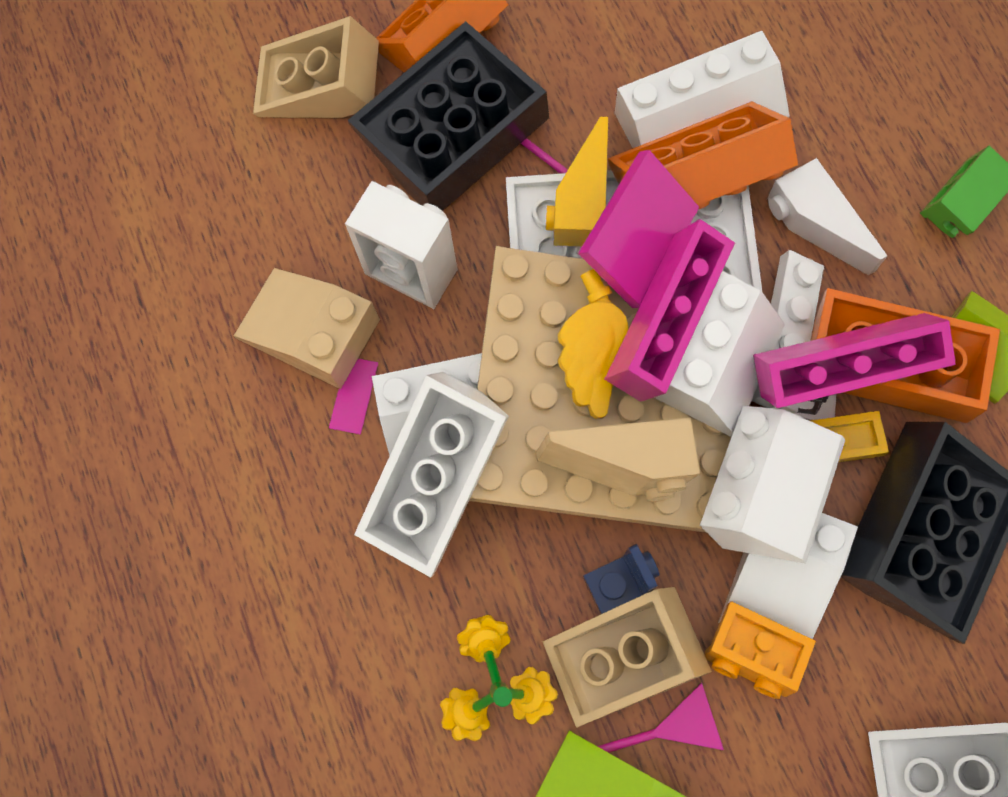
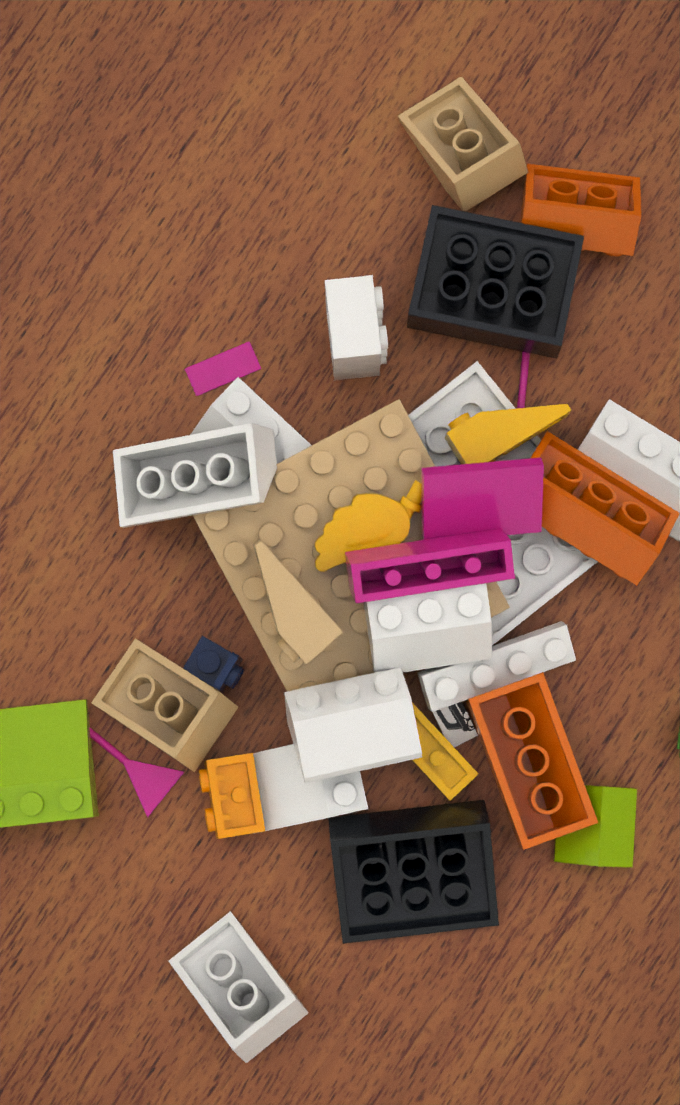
camera: 50 degrees right, 10 degrees up
(309, 325) = (249, 294): tan slope -> none
(530, 694) = (47, 617): yellow plant -> none
(821, 214) = (618, 627): white slope -> none
(854, 359) = (484, 724): dark pink brick -> none

